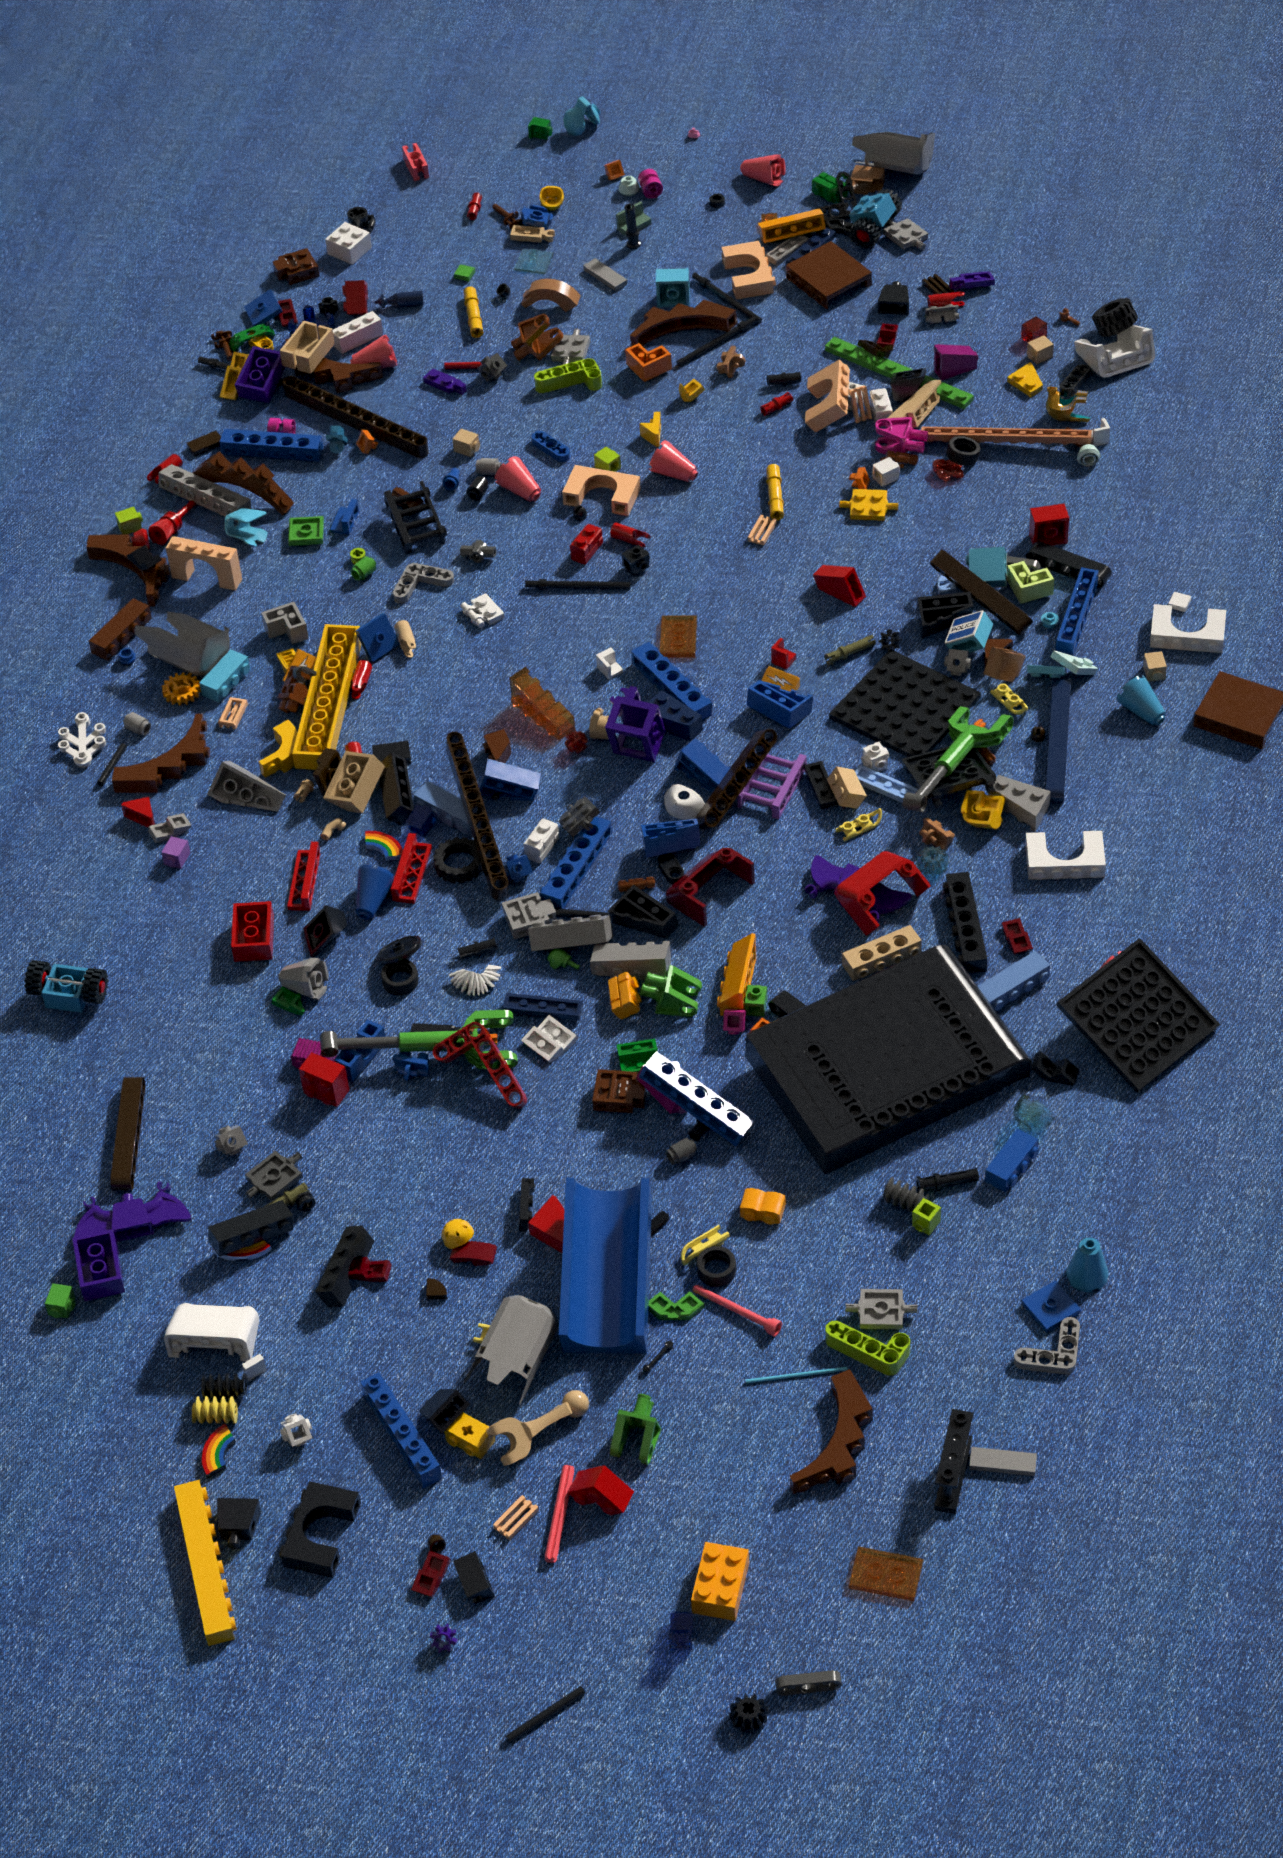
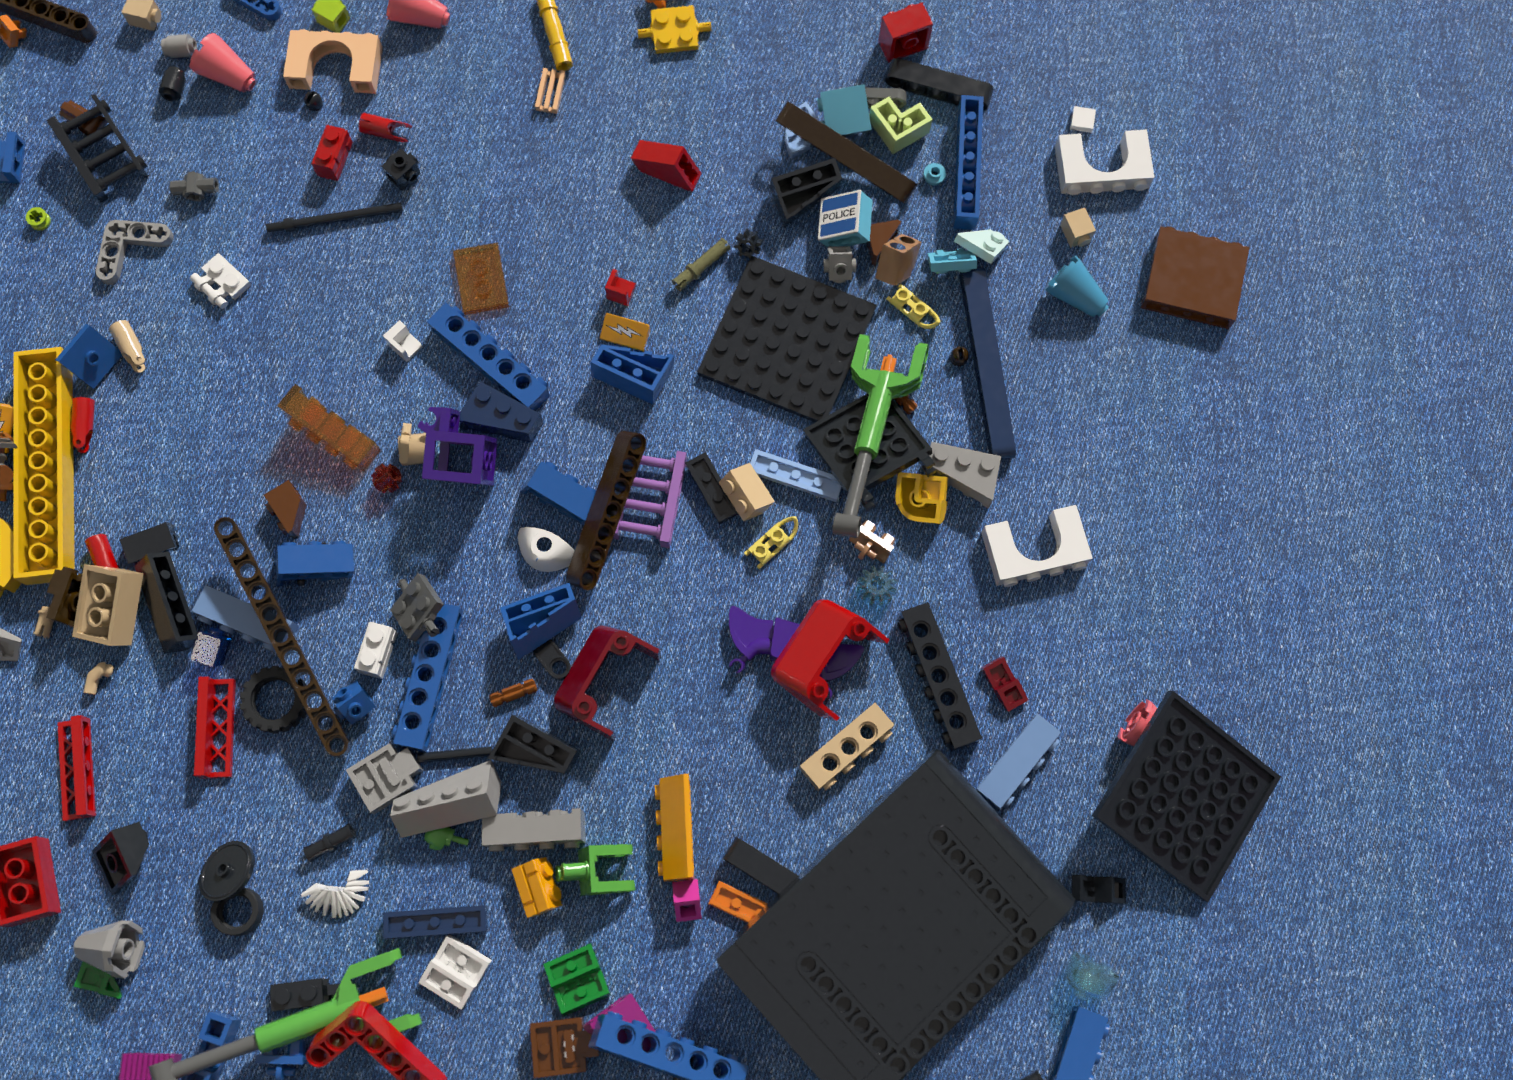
camera: 20 degrees left, 25 degrees up
(363, 568) = (48, 240): bright green brick -> none
(371, 889) = (169, 782): blue cone -> none
(383, 843) = (172, 689): tile -> none
(451, 480) = (135, 74): blue cone -> none
(756, 1000) = (706, 855): bright green brick -> none
(875, 757) = (767, 441): white brick -> none

